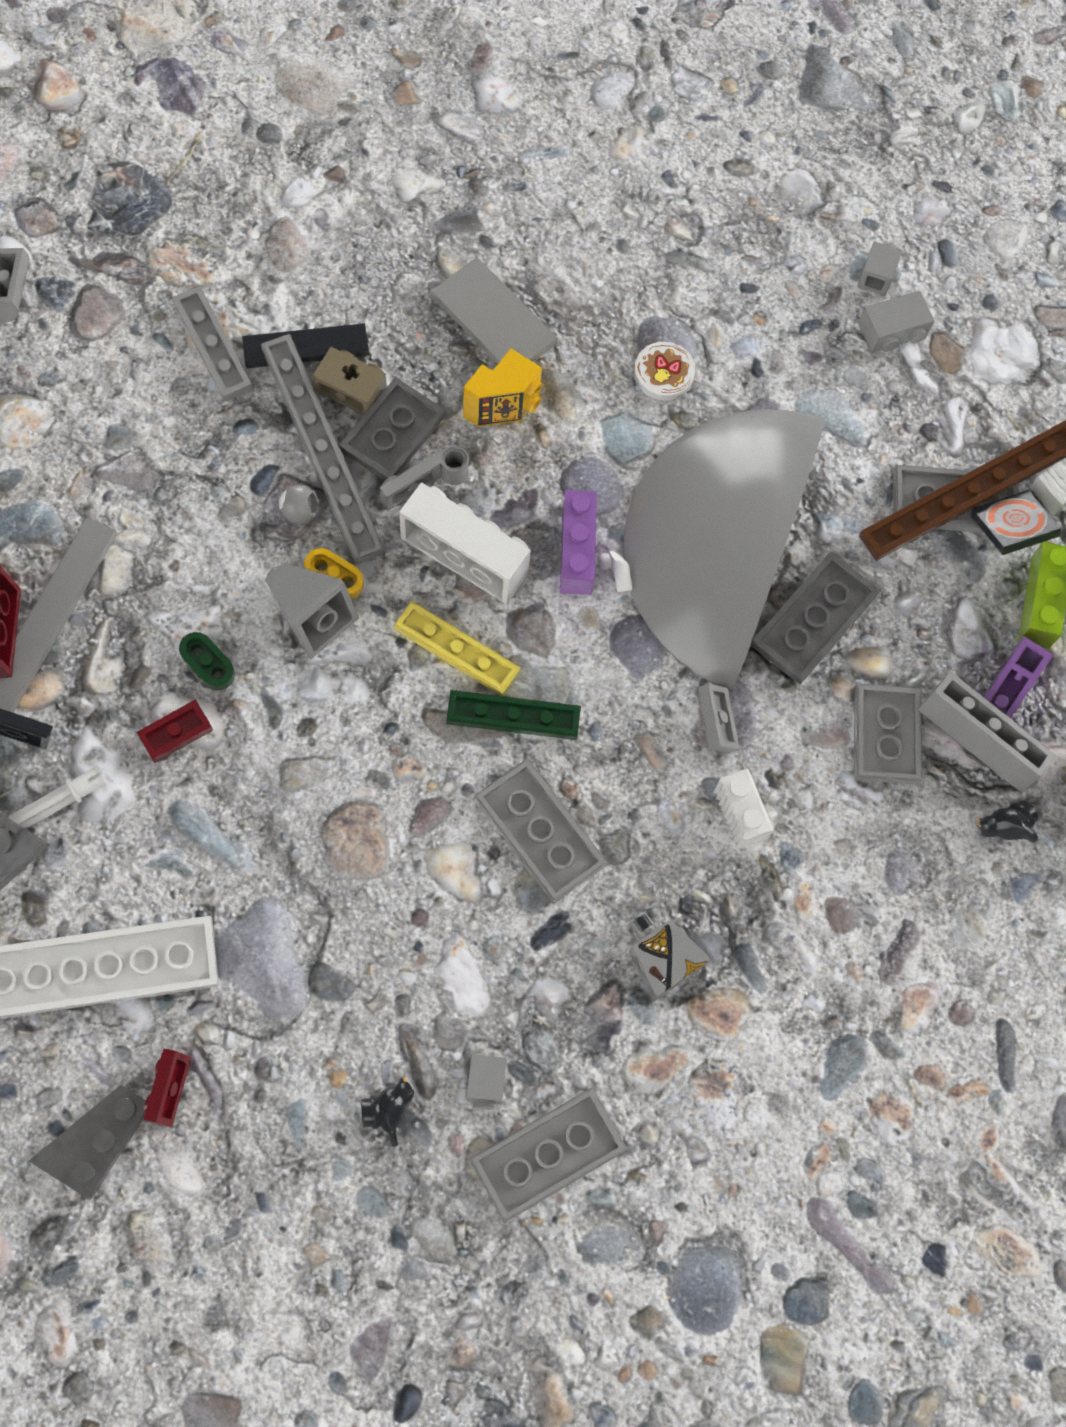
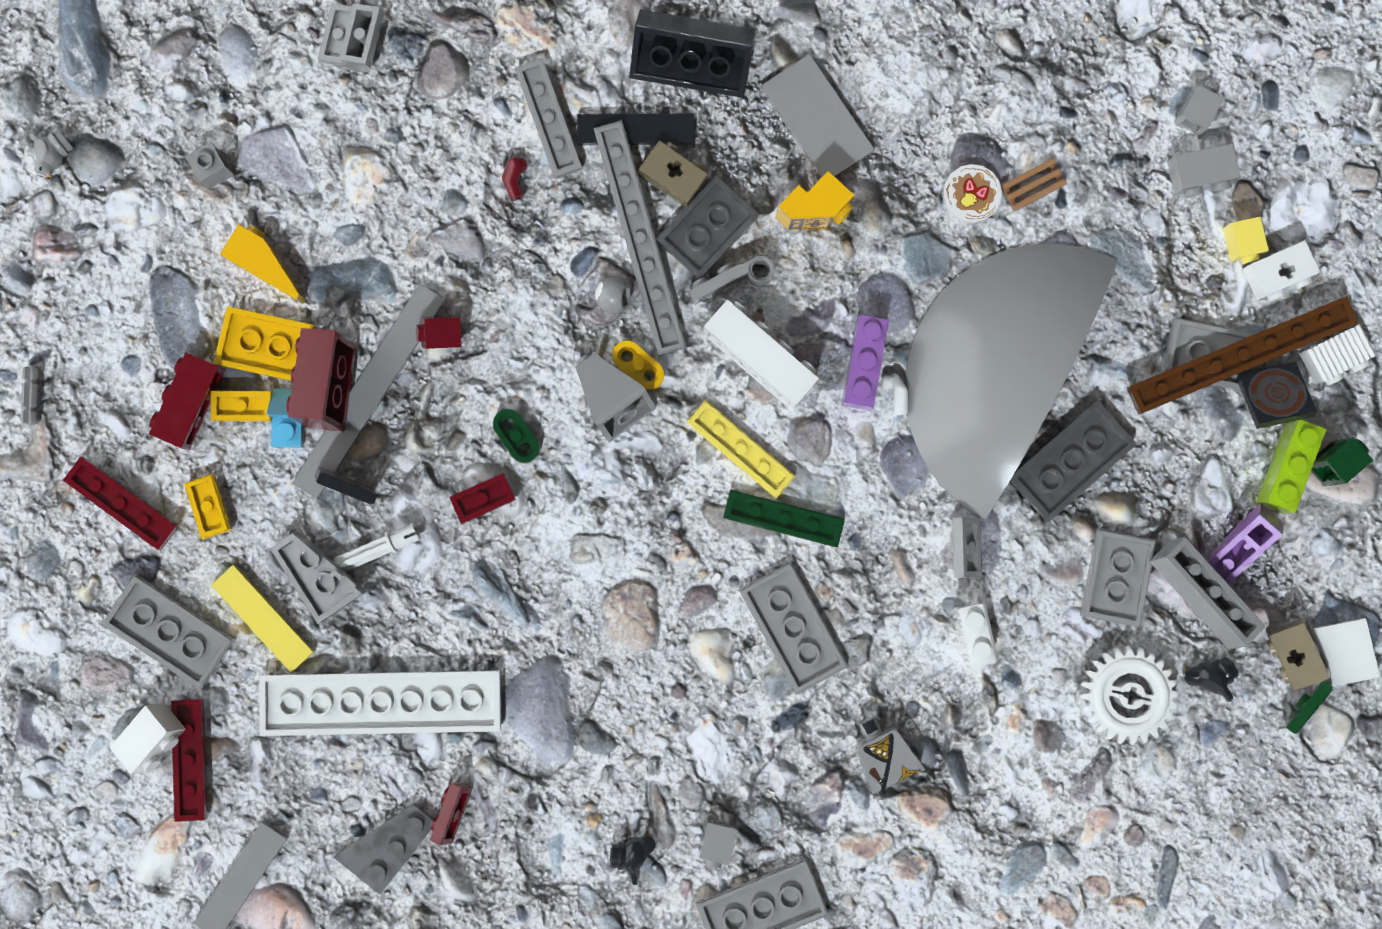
camera: 10 degrees right, 15 degrees up
(111, 560) = (439, 332): none -> dark red brick
(179, 395) = (510, 177): none -> dark red arm
(355, 268) = (691, 53): none -> black slope
(744, 343) = (1055, 173): none -> medium nougat tile
(892, 849) = (1101, 689): none -> white gear
(952, 382) = (1245, 240): none -> light yellow brick
(994, 407) = (1295, 261): none -> white brick

